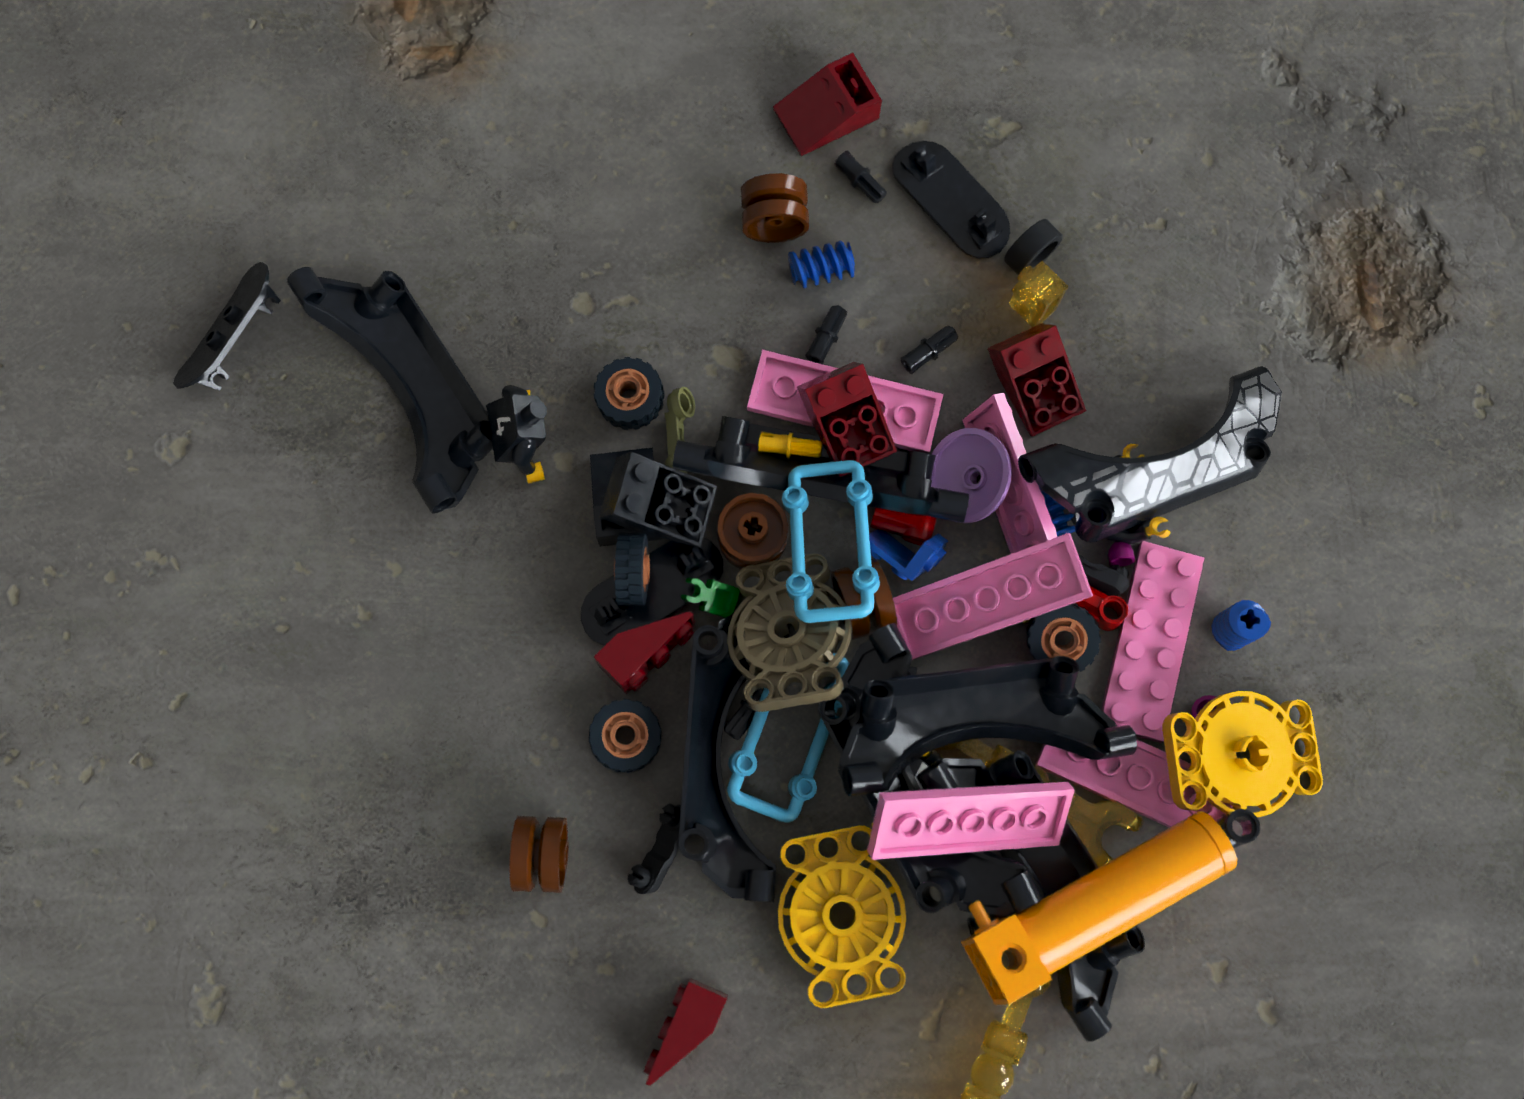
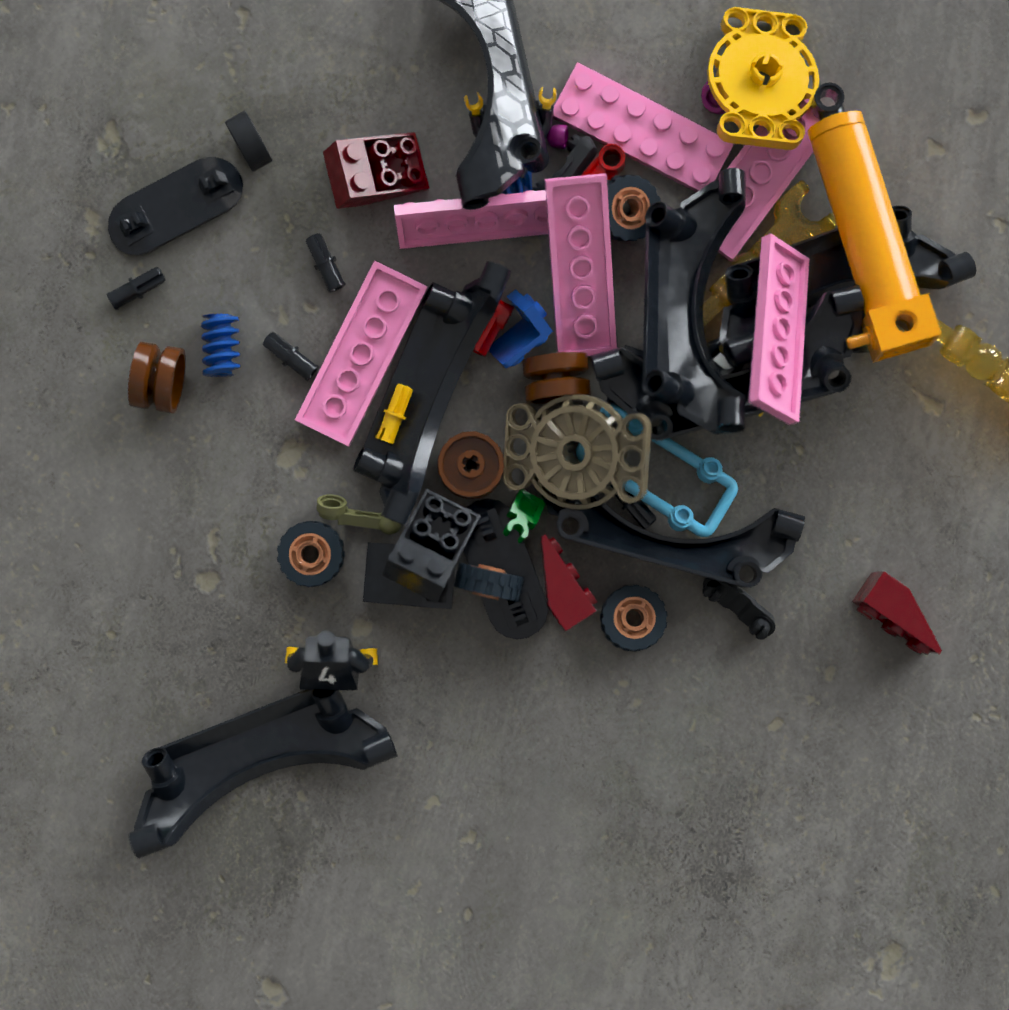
camera: 80 degrees left, 10 degrees up
(226, 329) = (167, 926): black piece -> none
(539, 854) = (725, 711): reddish brown wheel -> none
(829, 105) = (55, 302): dark red slope -> none
(847, 415) = (381, 354): dark red slope -> none
(860, 944) = (849, 442): yellow piece -> none
(864, 578) = (547, 372): medium azure bar -> none
(962, 459) = (450, 267): lavender dish -> none
(1037, 293) = (297, 149): clear yellow brick -> none
(1240, 625) = (649, 48): blue piece -> none

